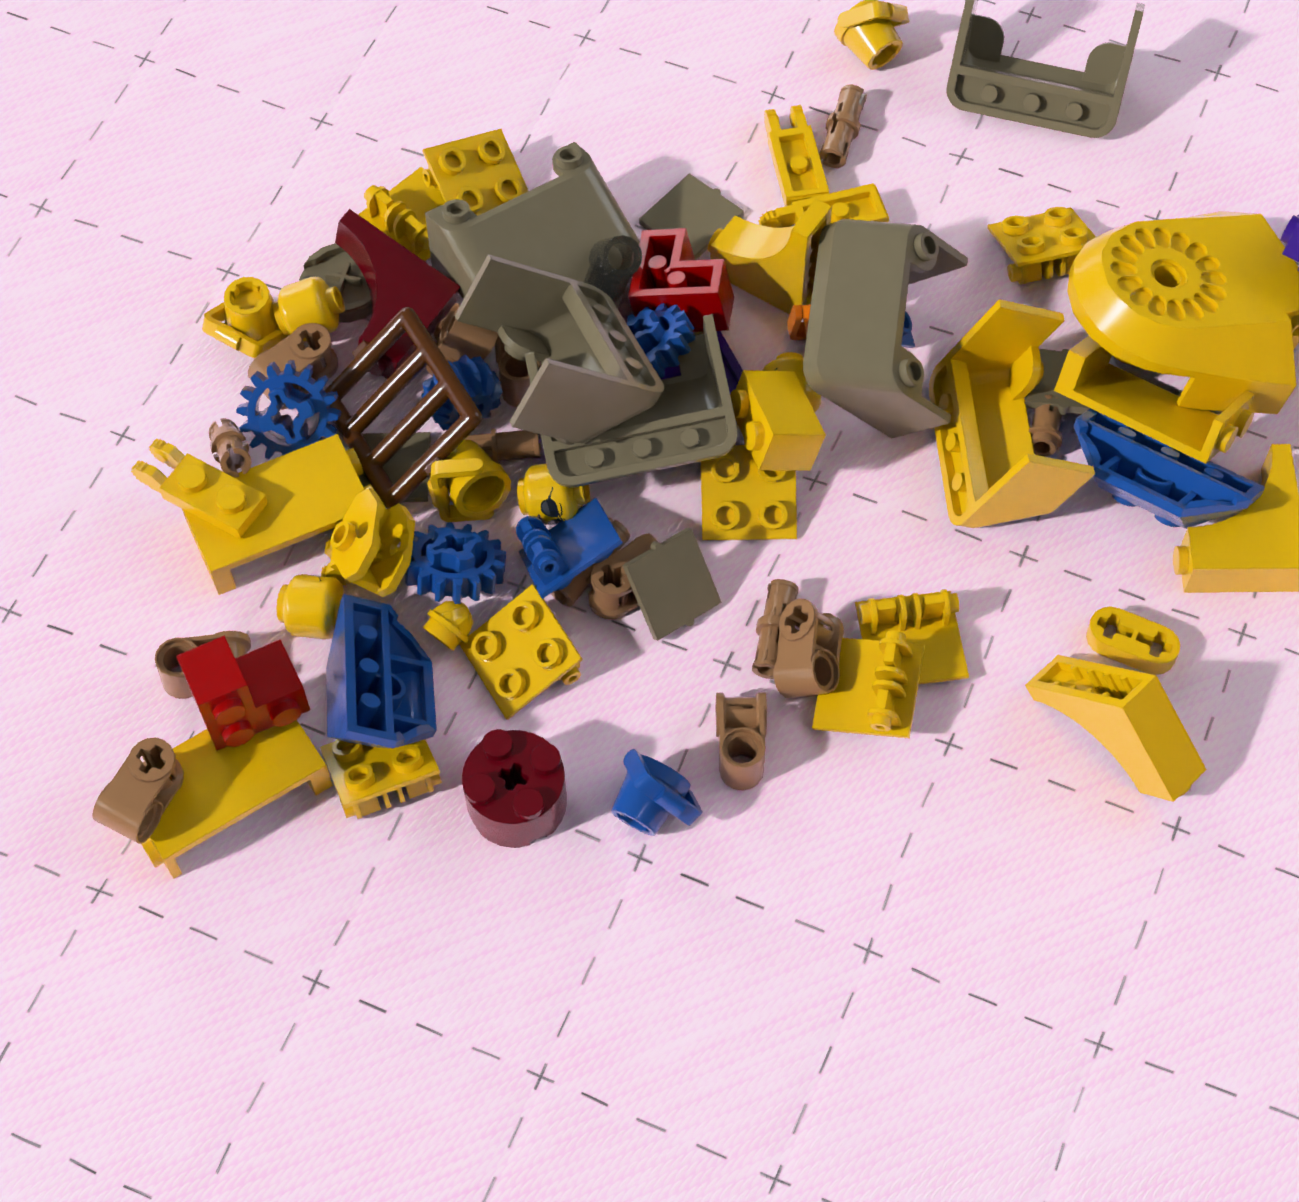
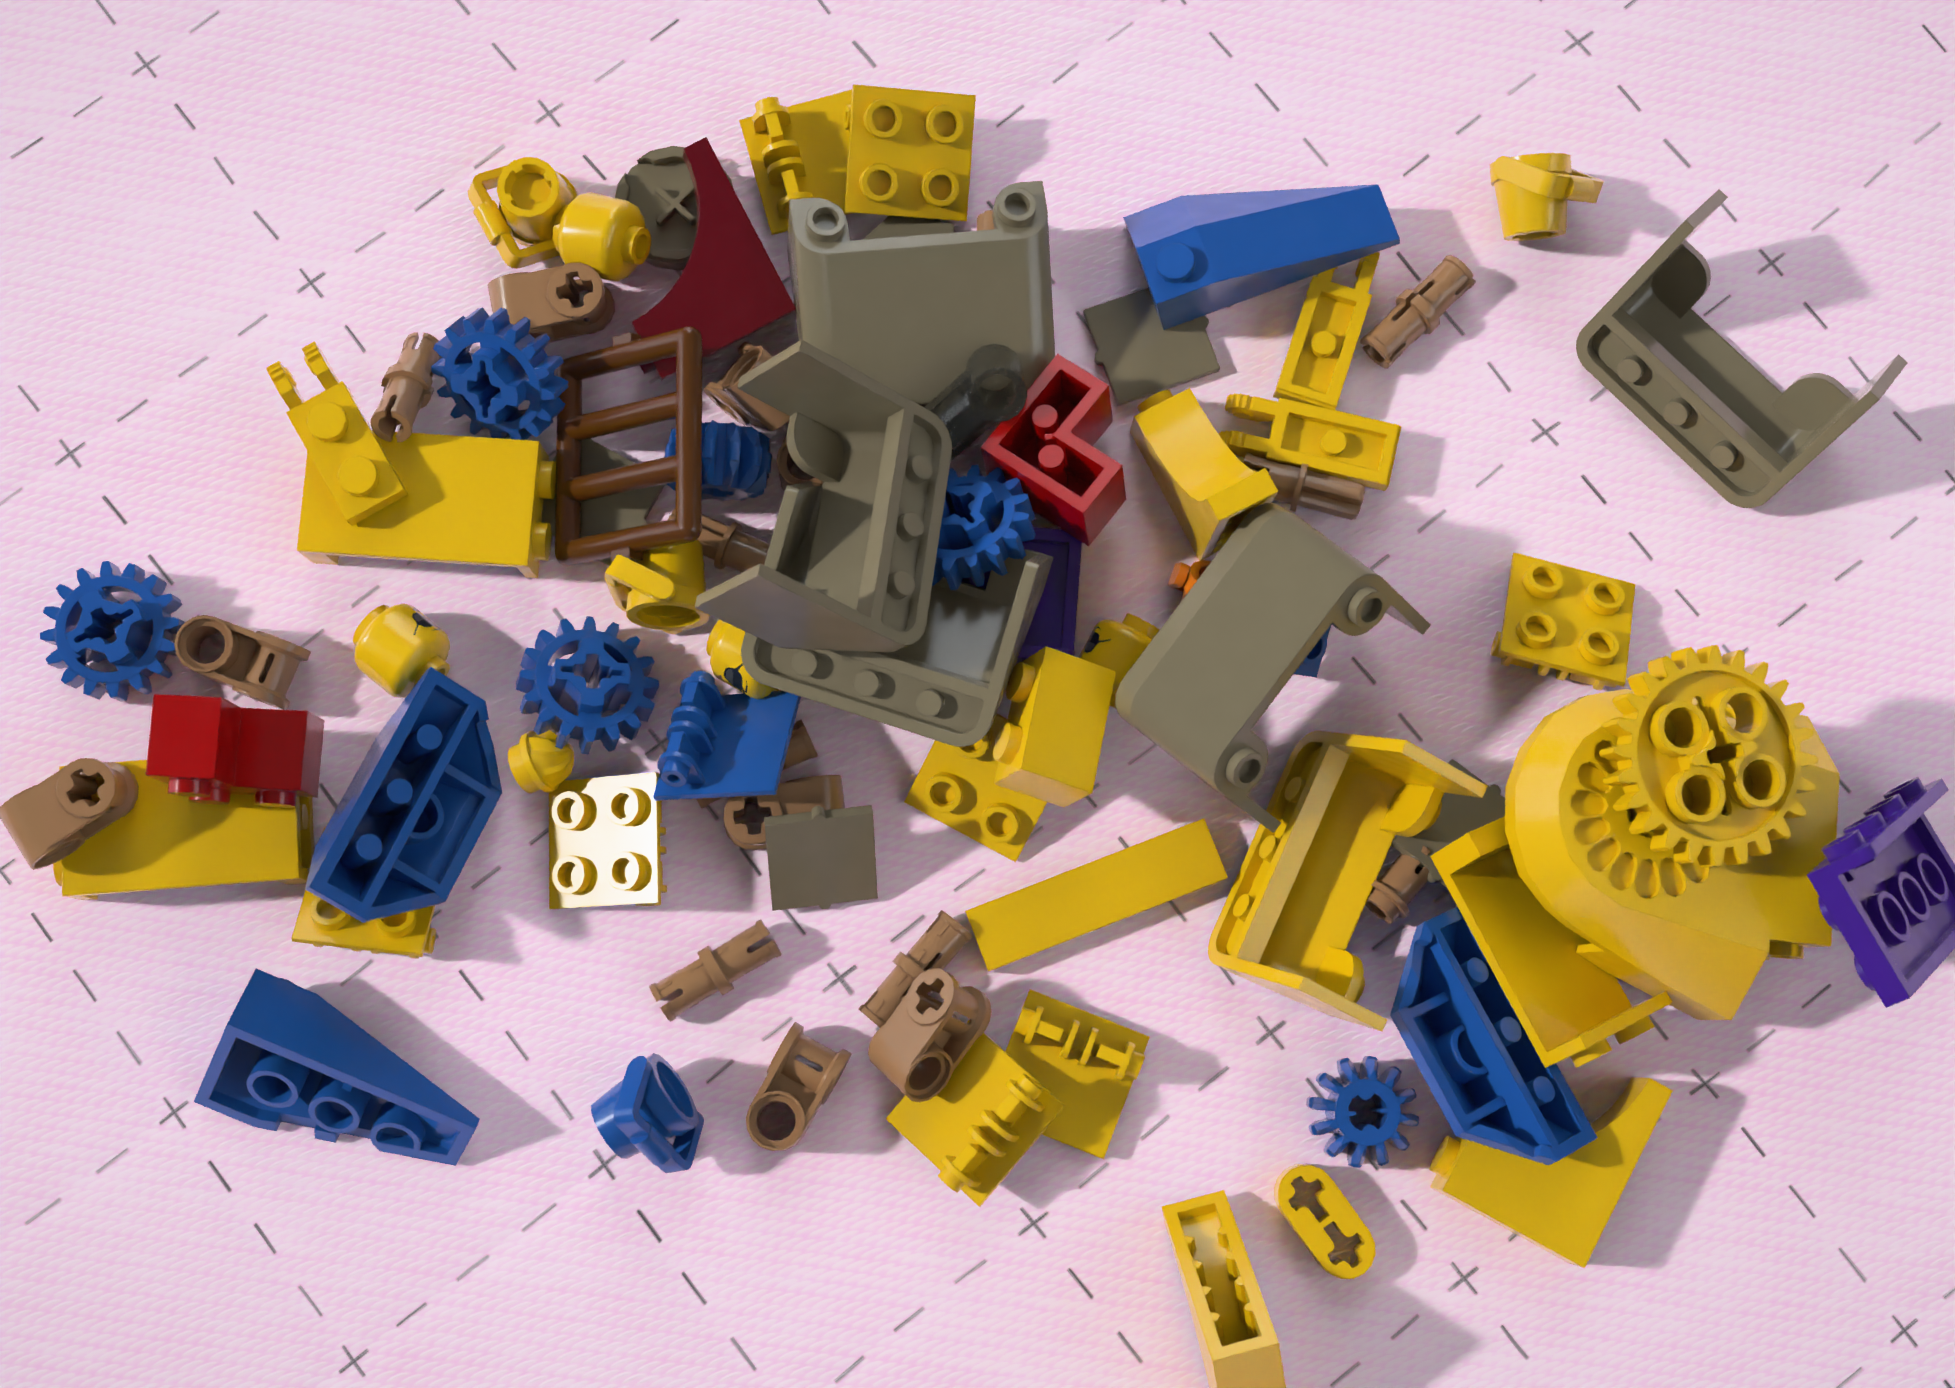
camera: 25 degrees right, 20 degrees up
(105, 688) = (87, 621): none -> blue gear
(366, 543) = (497, 620): yellow hinge -> none
(411, 891) = (313, 1067): none -> blue wedge
(519, 763) = (461, 1016): dark red brick -> none
(642, 694) = (715, 970): none -> medium nougat pin
(712, 140) = (1239, 245): none -> blue wedge
(861, 529) = (1096, 894): none -> yellow tile
(1112, 561) = (1362, 1135): none -> blue gear
(1181, 223) = (1656, 770): none -> yellow gear

